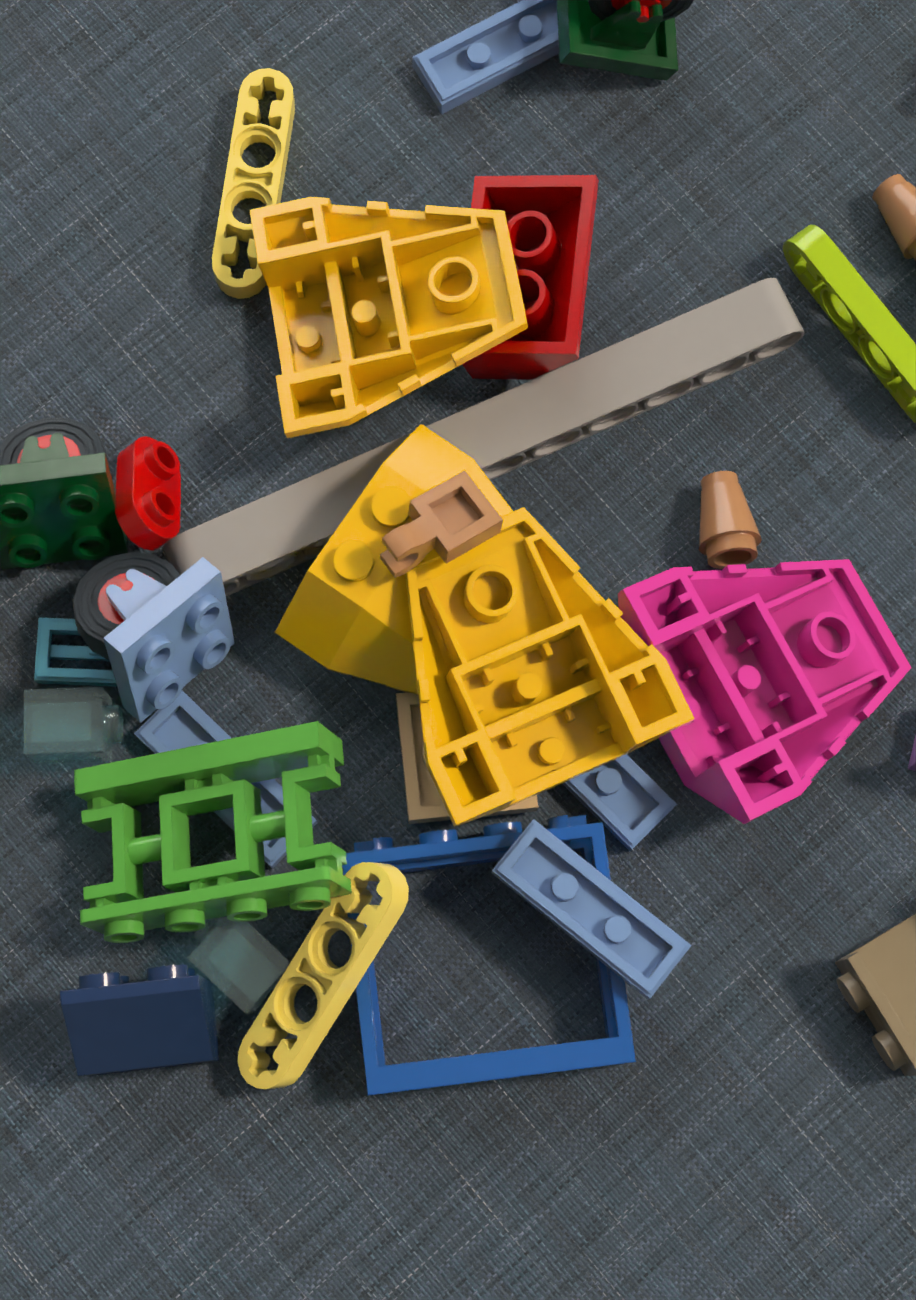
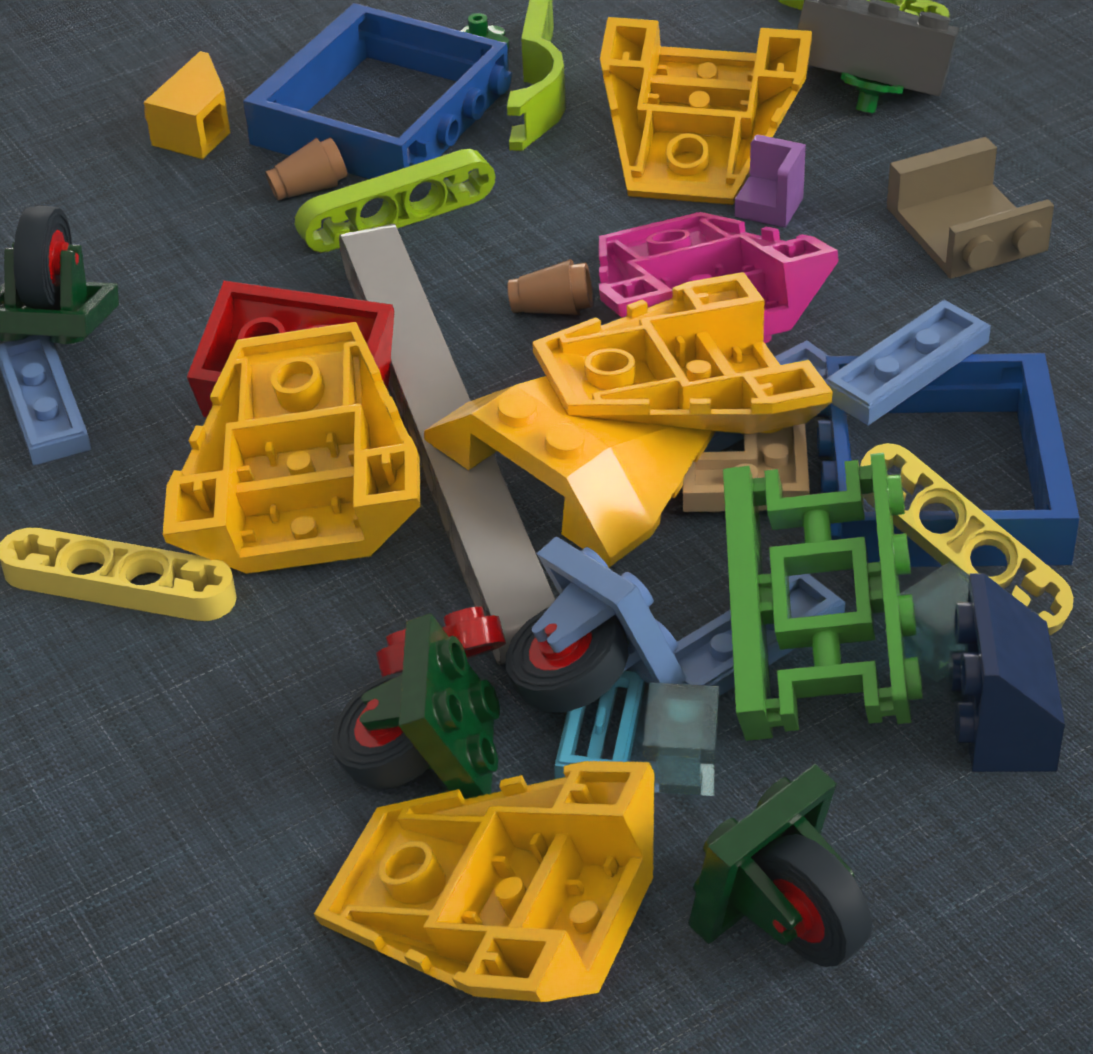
camera: 75 degrees left, 35 degrees down
(446, 519) = (548, 362): medium nougat plate -> none

